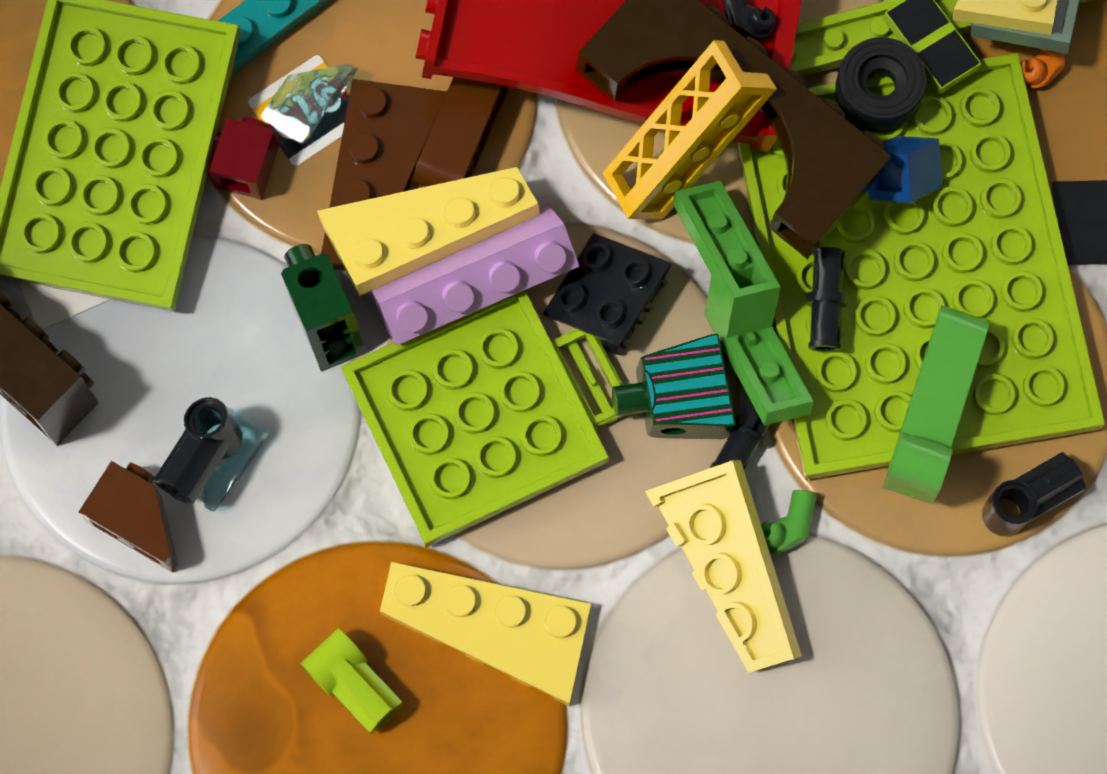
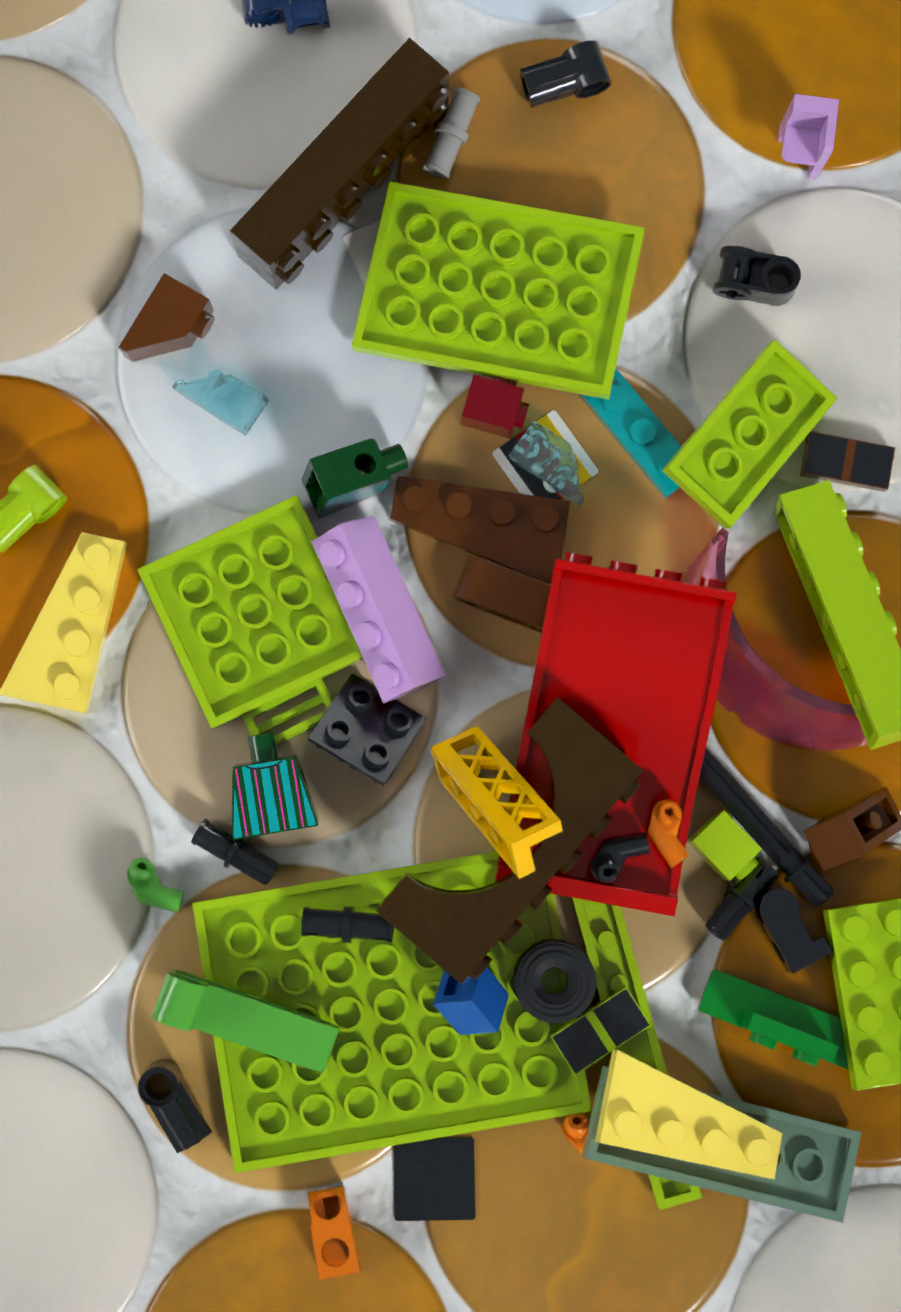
camera: 80 degrees right, 10 degrees up
(197, 451) = (212, 370): black piece -> none
(417, 227) = (419, 559): light yellow wing -> none
(724, 541) = (139, 828): light yellow wing -> none
(742, 302) = (346, 848): bright green bracket -> none

